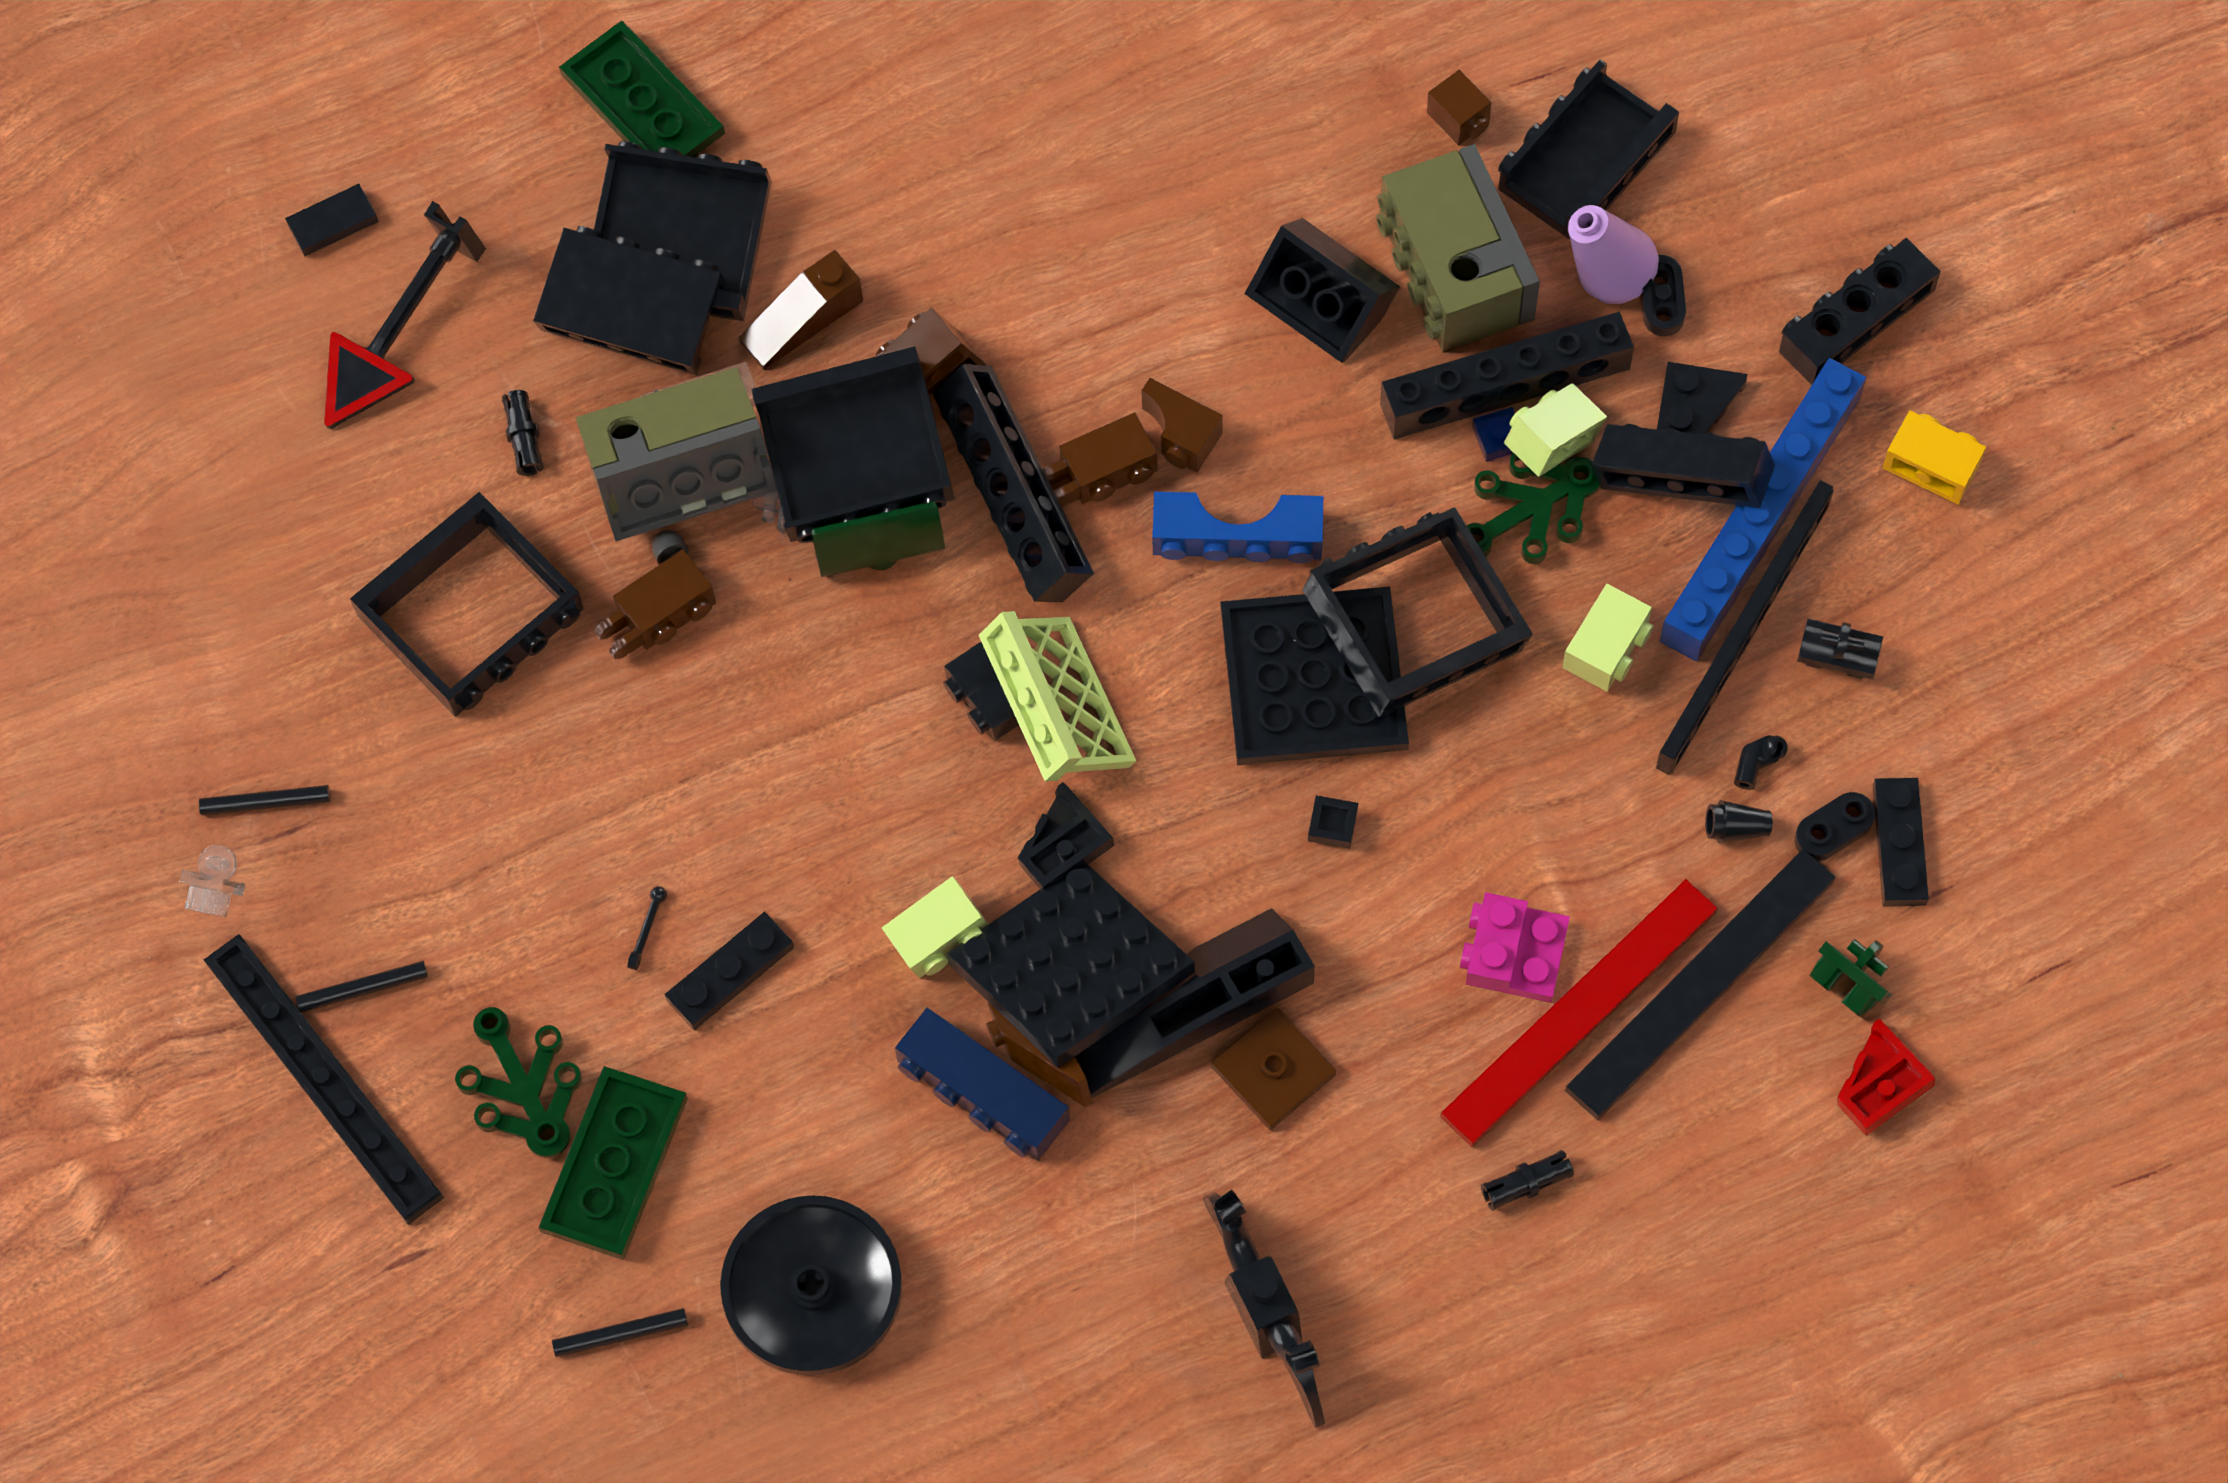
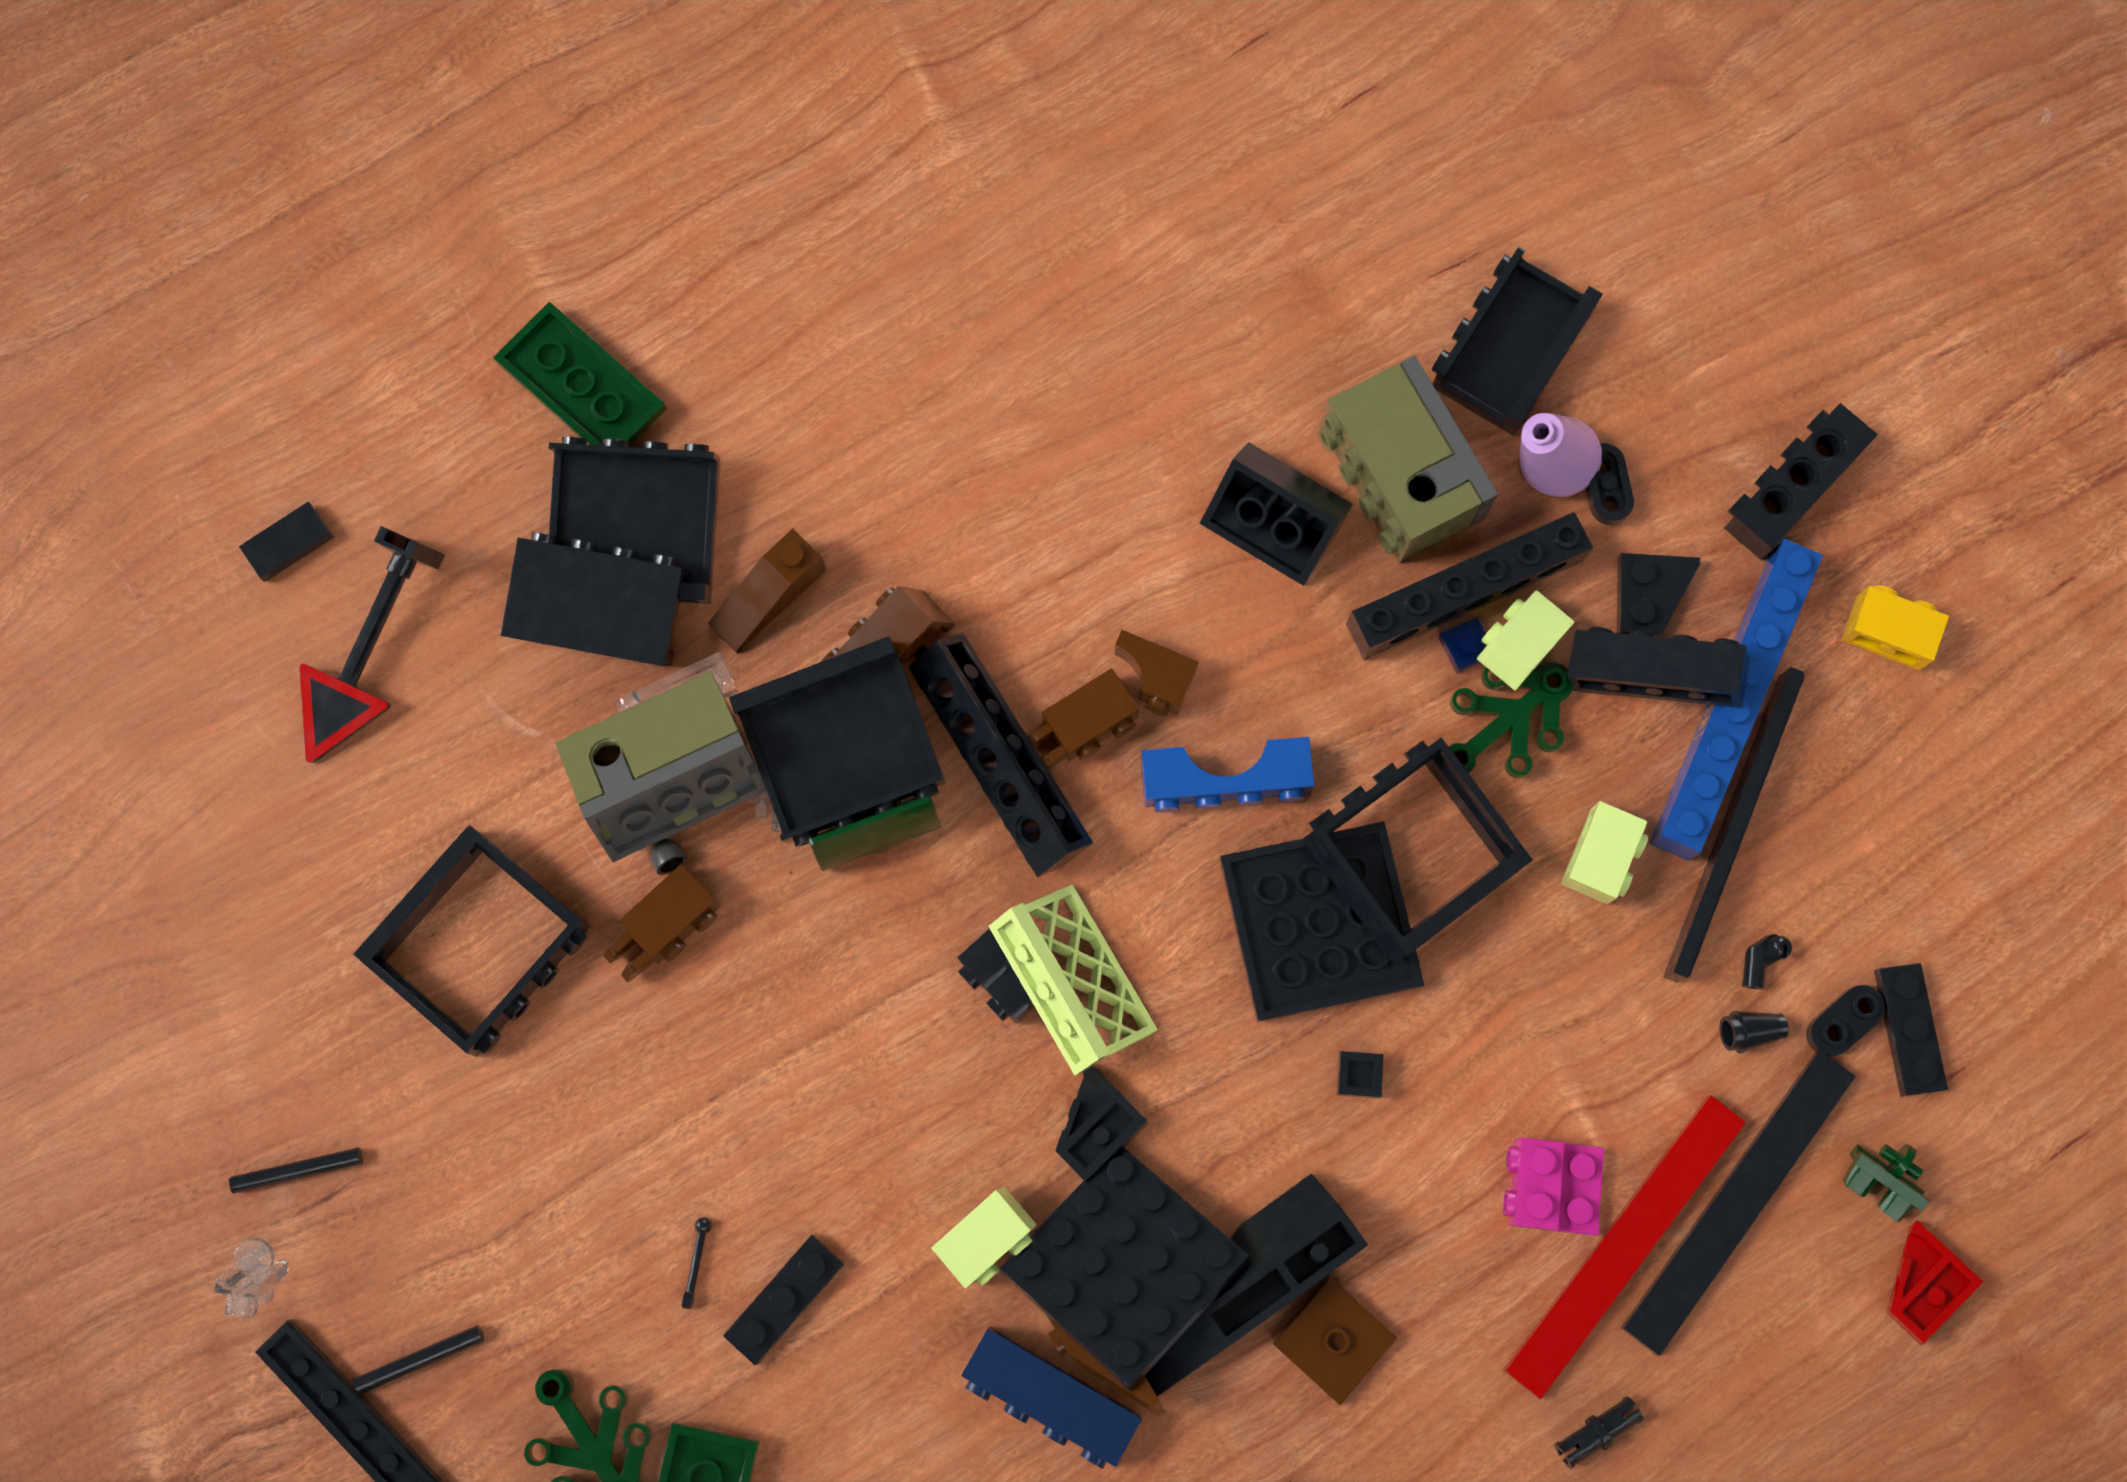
camera: 10 degrees left, 10 degrees up
(522, 432) = (505, 749): black pin -> none
(1459, 108) = (1385, 309): reddish brown brick -> none
(1840, 649) = (1830, 839): black hips -> none

